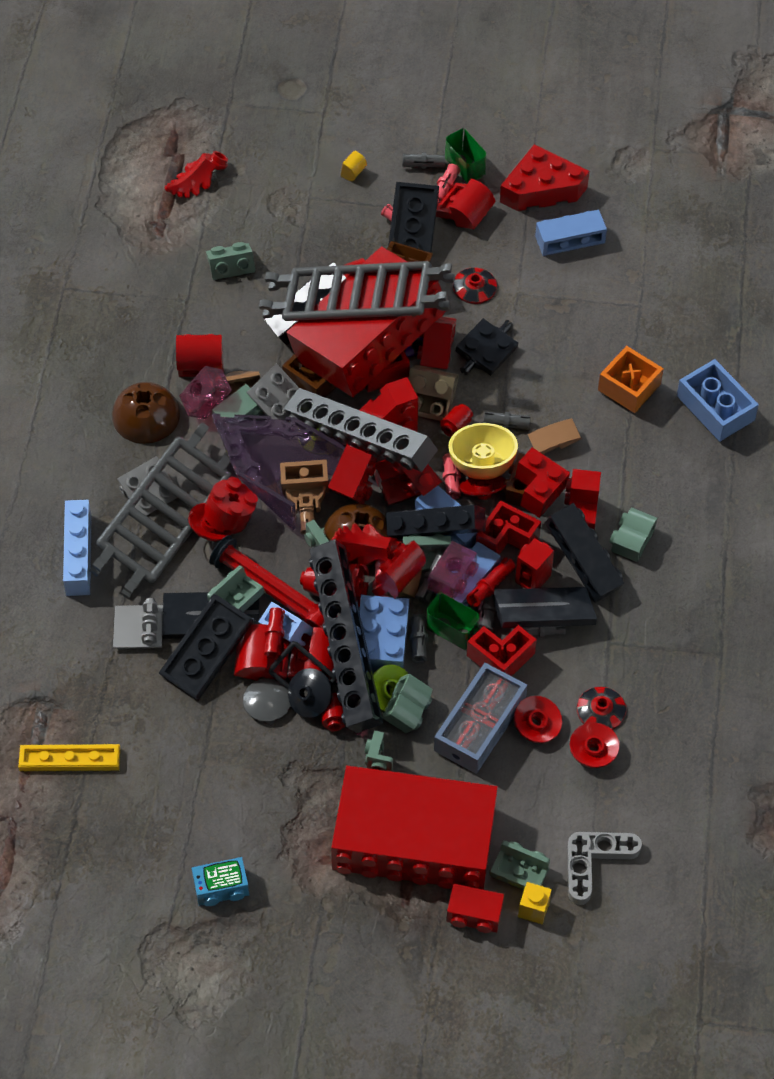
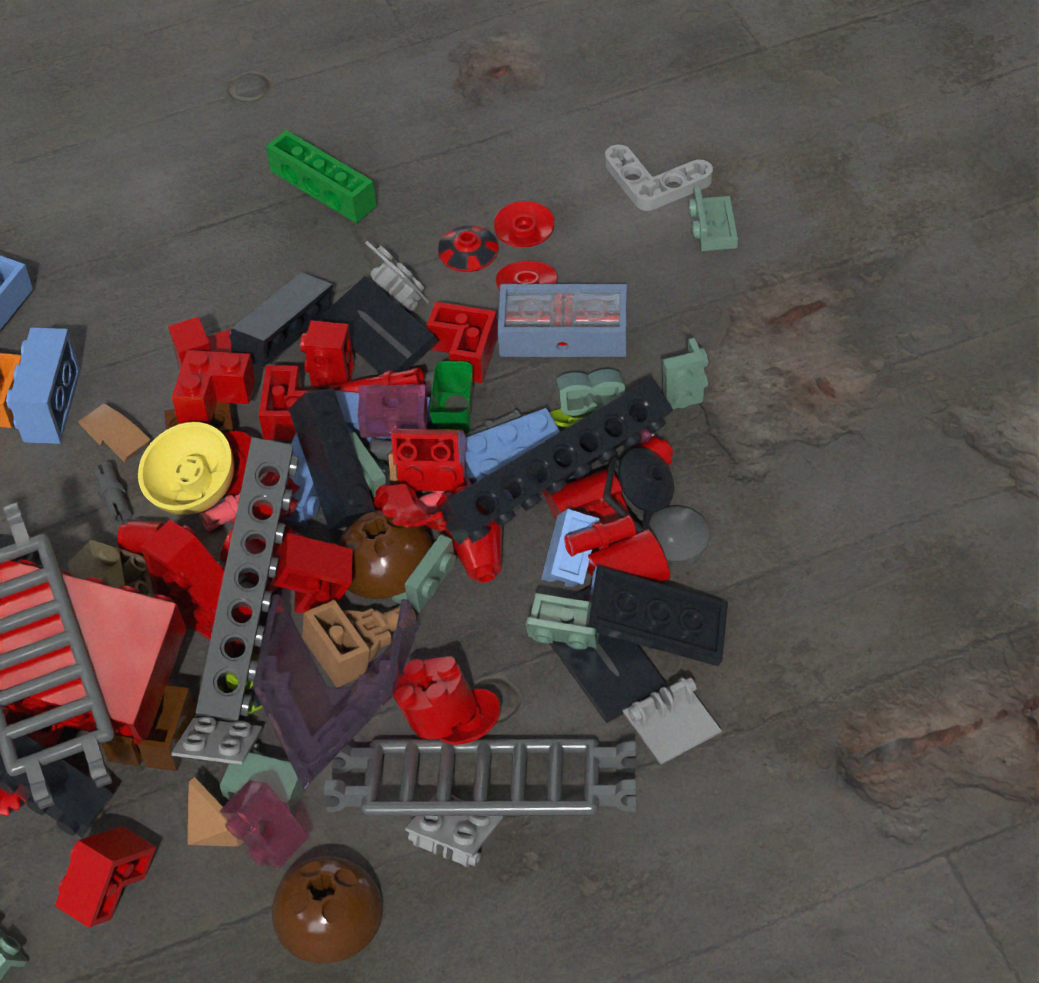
camera: 115 degrees left, 5 degrees down
(69, 757) = (903, 693): yellow tile -> none
(77, 548) = (607, 849): light blue brick -> none
(198, 351) = (204, 864): red brick -> none
(220, 882) = (936, 453): brick -> none
(227, 554) = (507, 670): red piece -> none
(233, 318) = (100, 871): none -> red brick
(413, 828) = (746, 309): red brick -> none
(475, 908) = (790, 230): red brick -> none
(534, 903) = (745, 191): yellow brick -> none
(587, 638) = (396, 280): none -> light grey hinge
(609, 406) = (44, 385): none -> medium blue brick
(633, 534) = (219, 301): sand green brick -> none
(717, 637) = (321, 176): none -> green brick

